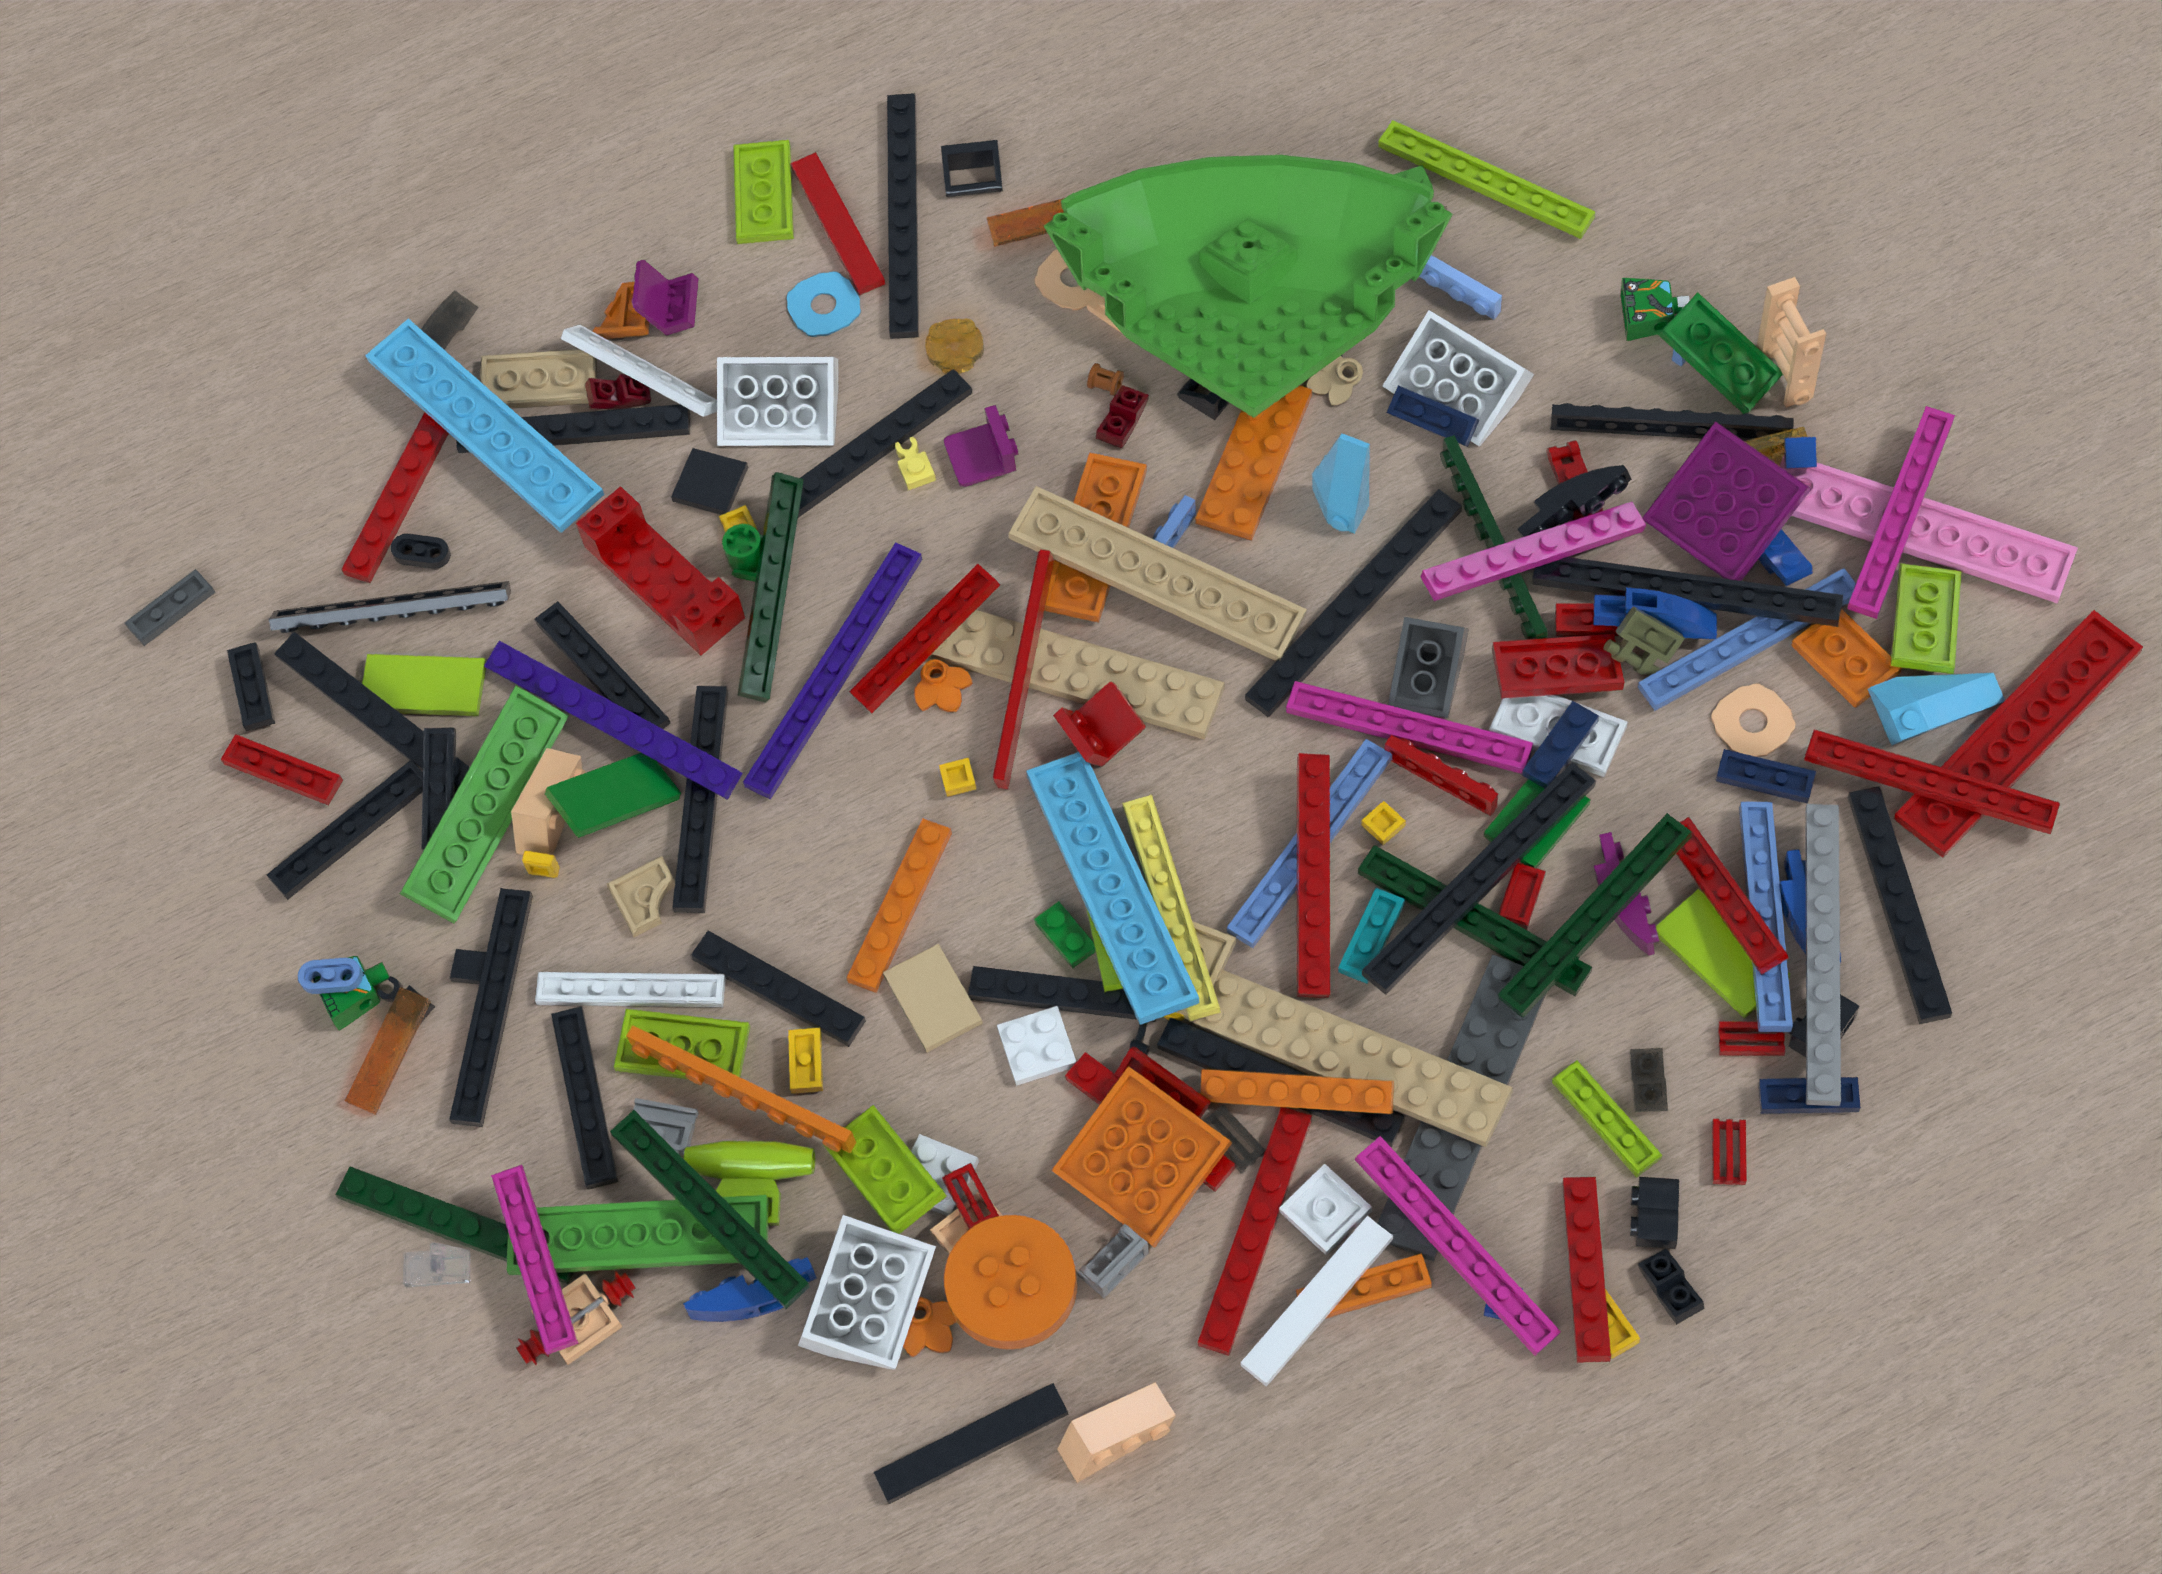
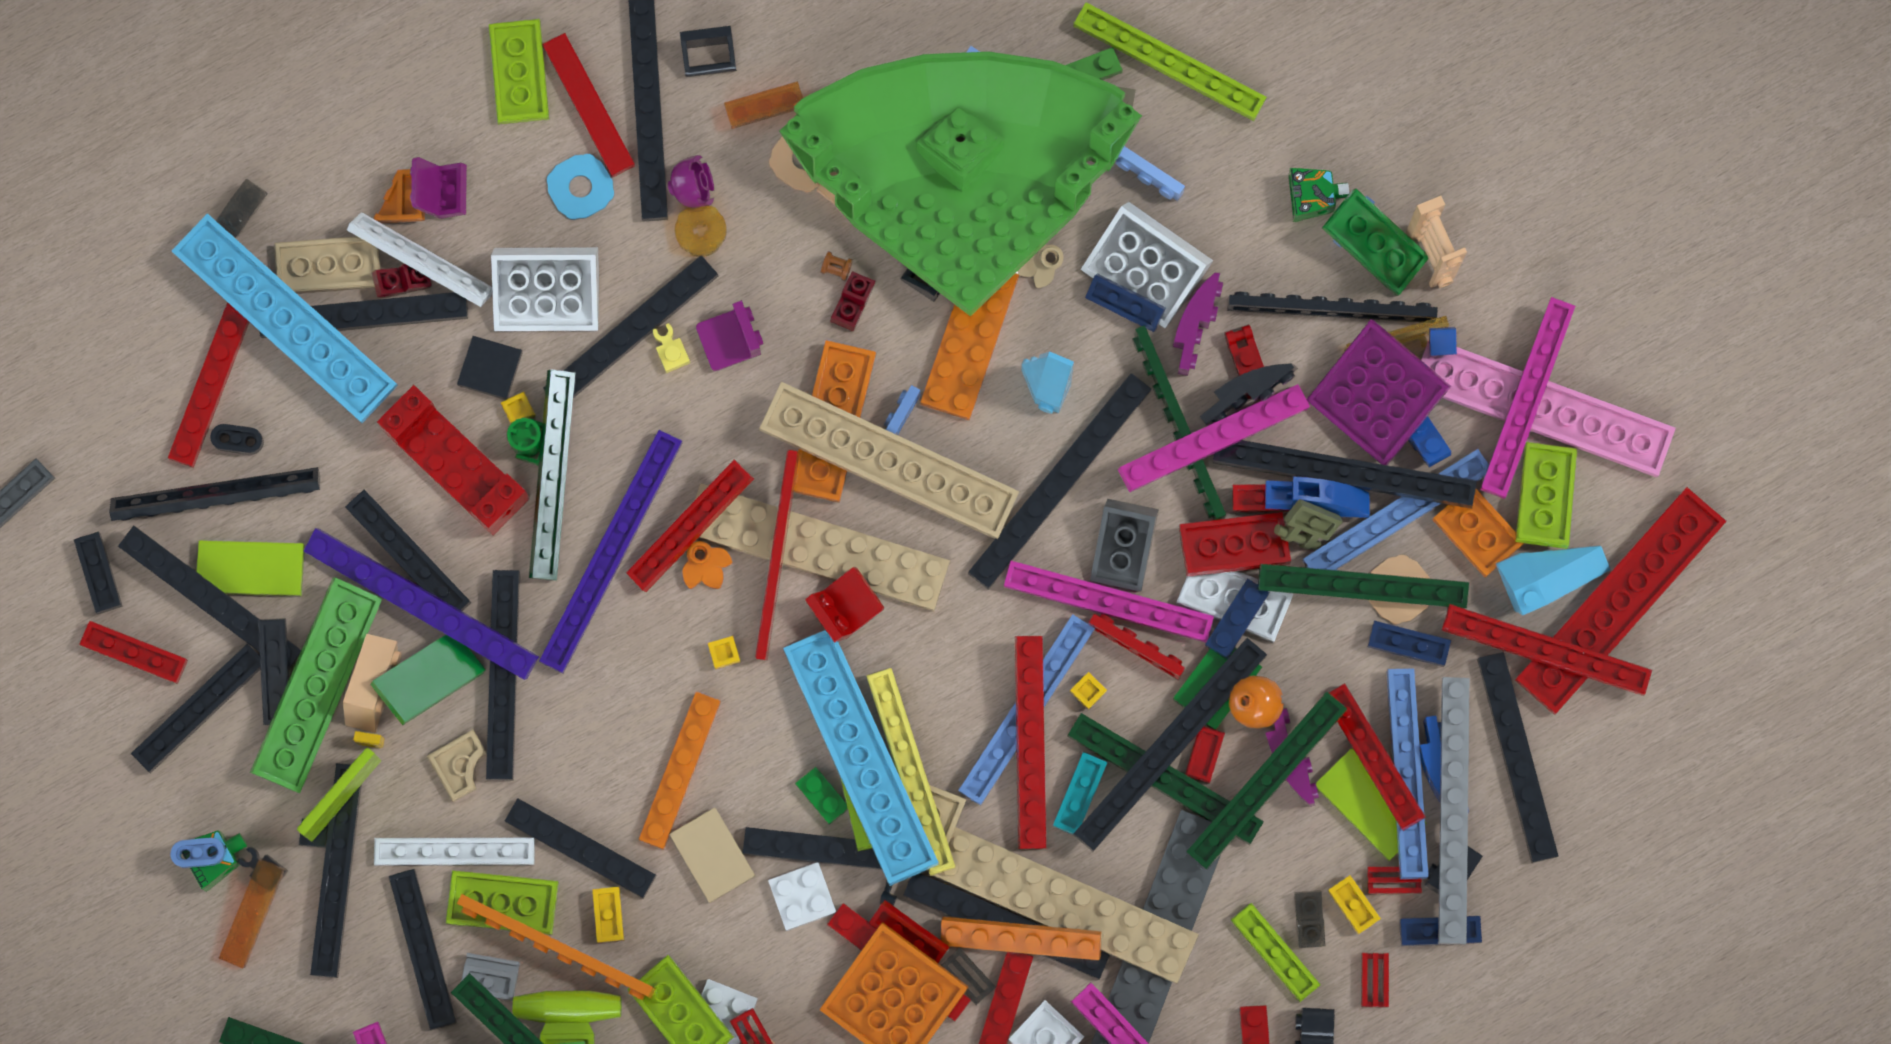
camera: 10 degrees left, 15 degrees up
(498, 913) = (339, 794): none -> lime tile
(946, 294) = (691, 182): none -> magenta cylinder
(1513, 433) = (1197, 314): none -> magenta slope
(1582, 830) = (1256, 702): none -> orange cylinder
(1702, 1064) = (1354, 904): none -> yellow plate
(1708, 709) = (1362, 585): none -> dark green plate

